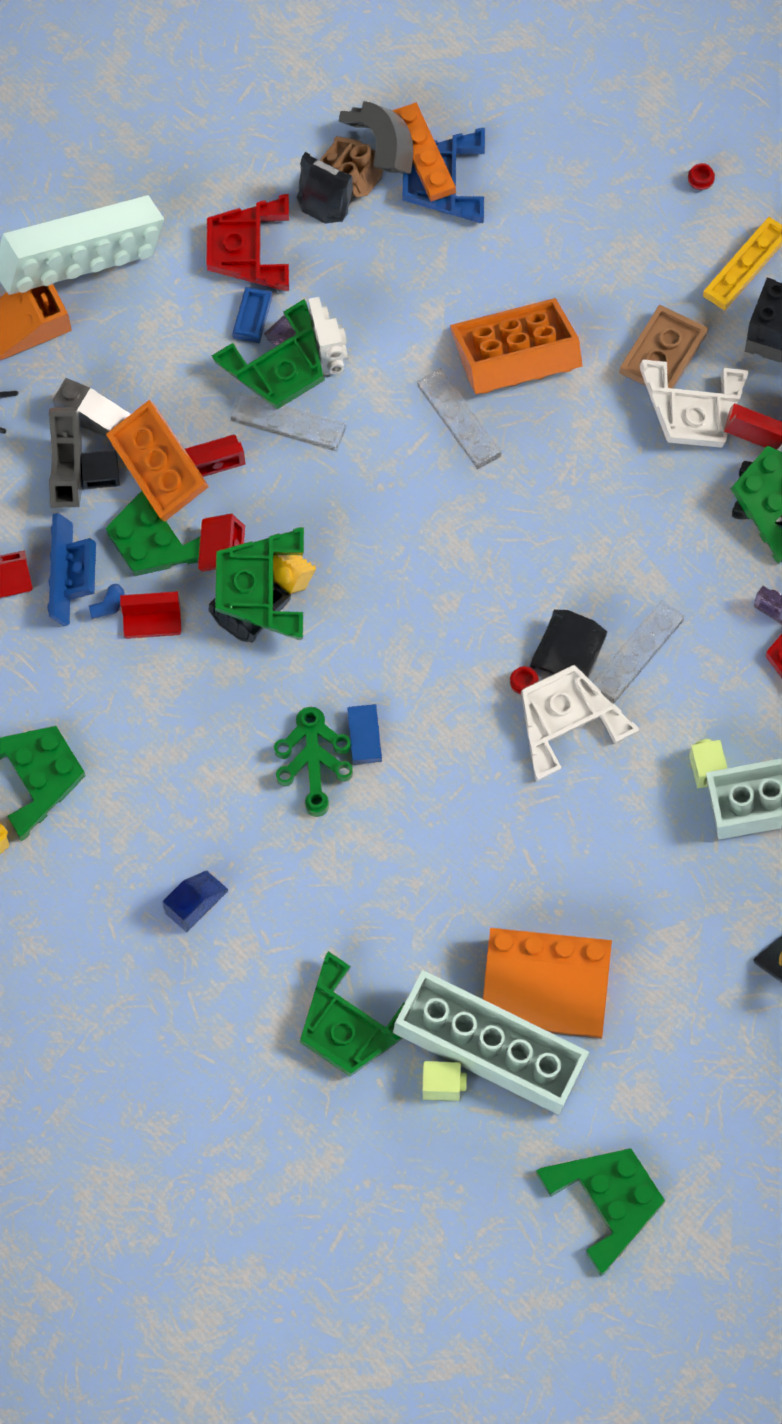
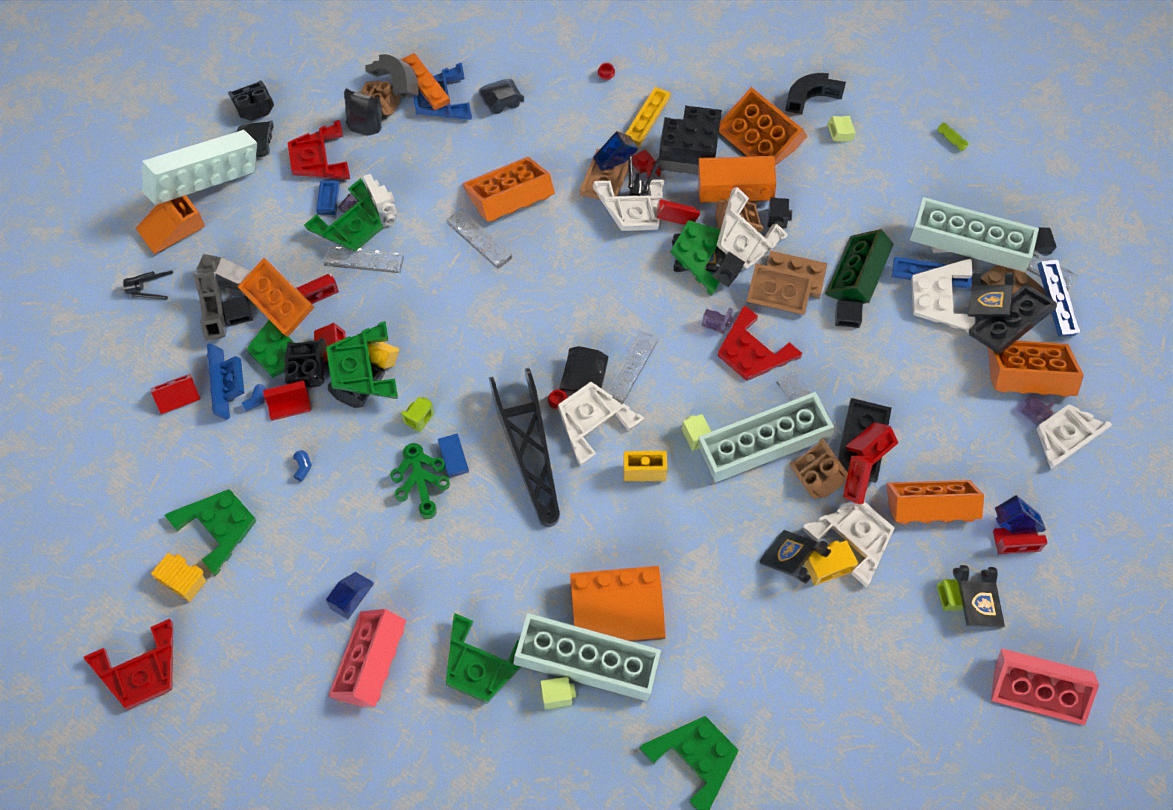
camera: 15 degrees left, 5 degrees down
(160, 708) = (304, 464): none -> blue arm
(165, 140) = (252, 101): none -> black slope
(167, 196) = (261, 133): none -> black slope
(183, 565) = (305, 362): none -> black slope
(205, 987) = (368, 658): none -> coral slope
(327, 666) = (418, 413): none -> lime brick
(469, 833) = (503, 414): none -> black piece
(534, 191) = (500, 95): none -> black slope
(624, 799) = (644, 465): none -> yellow brick
(684, 316) = (615, 151): none -> clear blue slope
(705, 377) = (637, 186): none -> black plant
(727, 337) = (644, 163): none -> red plate

